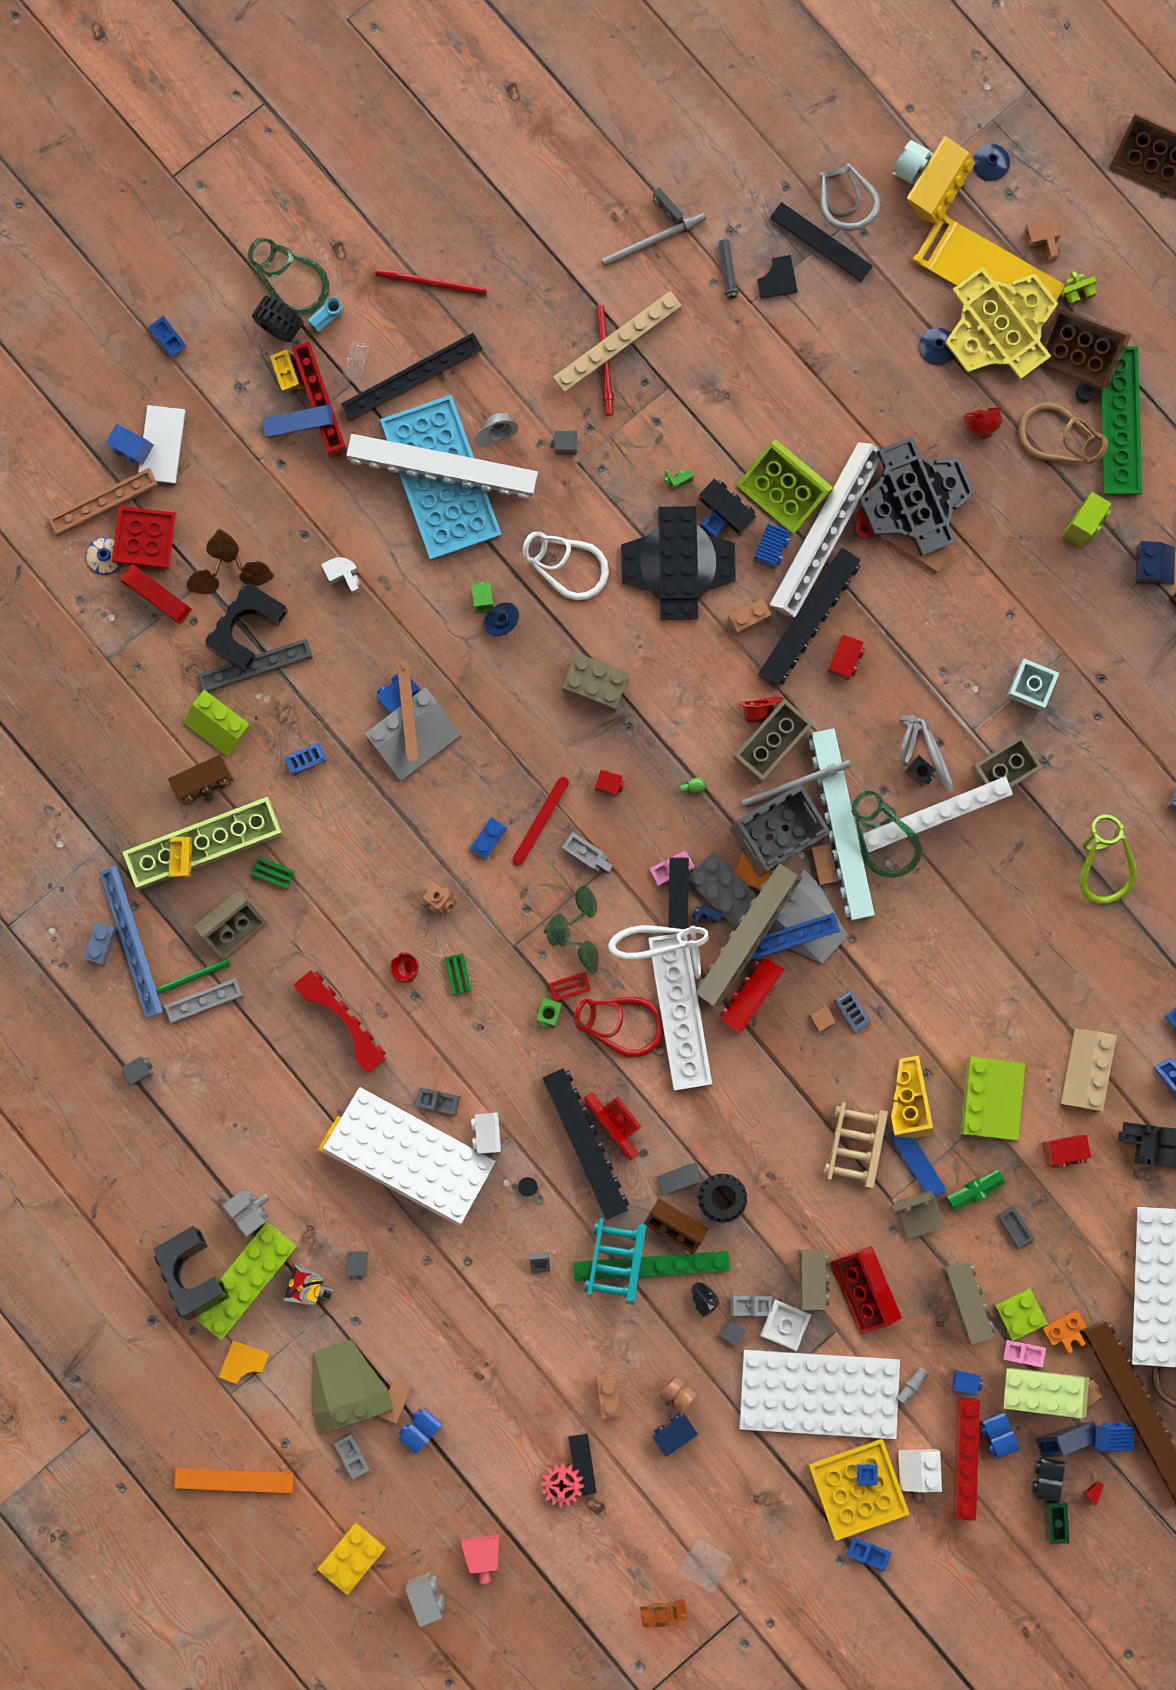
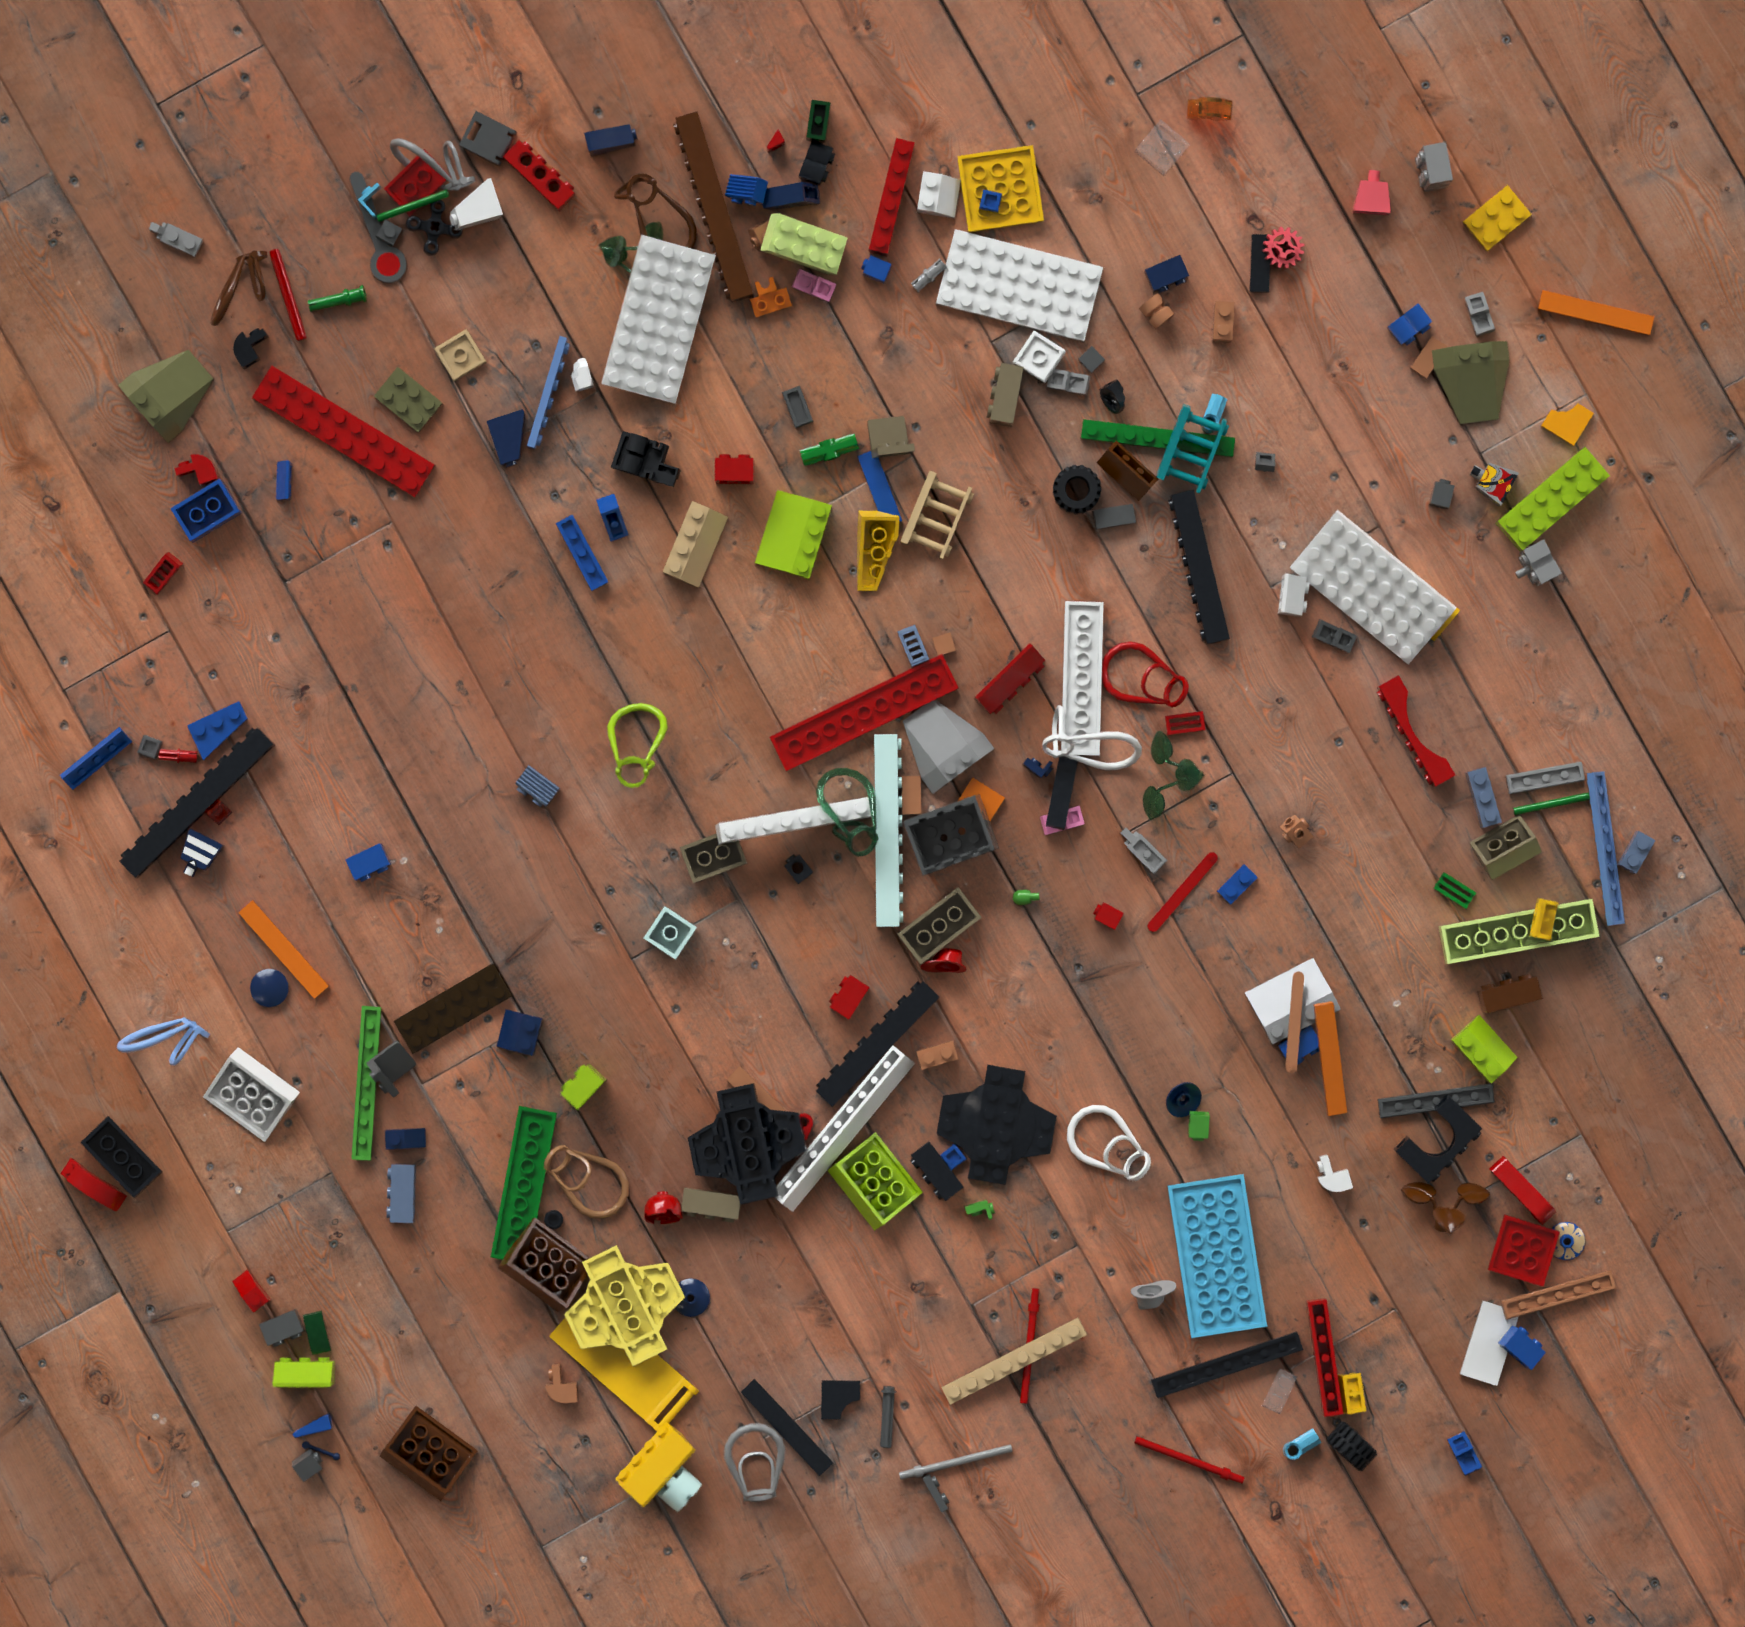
camera: 160 degrees left, 5 degrees up
(137, 1070) = (1621, 722): dark grey brick -> none
(171, 1257) = (1619, 534): black arch -> none
(261, 968) = (1483, 797): none -> sand blue brick
(286, 251) = (1354, 1490): clear green animal -> none
(294, 771) = (1420, 999): blue slope -> none
(297, 421) = (1350, 1337): blue tile -> none
(366, 684) = (1330, 1058): none -> orange tile
(404, 967) = (1343, 772): red hair -> none
(442, 466) = (1213, 1264): white brick -> none
(454, 958) = (1292, 762): green tile -> none
(527, 1186) = (1262, 537): black tile -> none
(548, 1004) = (1204, 706): bright green brick -> none
(564, 442) = (1086, 1267): dark grey brick -> none
(595, 682) = (1102, 1018): dark tan brick -> none
(600, 1305) = (1214, 410): none -> medium azure piece
(617, 1121) = (1165, 583): red bracket -> none
(722, 888) = (1013, 786): dark grey plate -> none
(748, 935) = (1002, 737): dark tan brick -> none
(771, 546) = (900, 1123): blue brick -> none
(797, 935) = (969, 726): blue plate -> none
(830, 770) = (888, 884): light grey bar -> none
(866, 1290) = (955, 375): red slope -> none
(869, 1553) = (1002, 126): blue slope -> none
(887, 936) = (864, 712): none -> red plate
(935, 754) = (777, 846): light grey animal -> none
(939, 434) = (710, 1204): none -> dark tan brick
(968, 1303) = (861, 344): dark tan brick -> none
(991, 170) = (603, 1471): dark blue dish -> none
(1000, 1435) = (854, 213): blue brick -> none
(1020, 1314) = (809, 323): lime plate -> none
(1086, 286) = (528, 1329): lime hips -> none

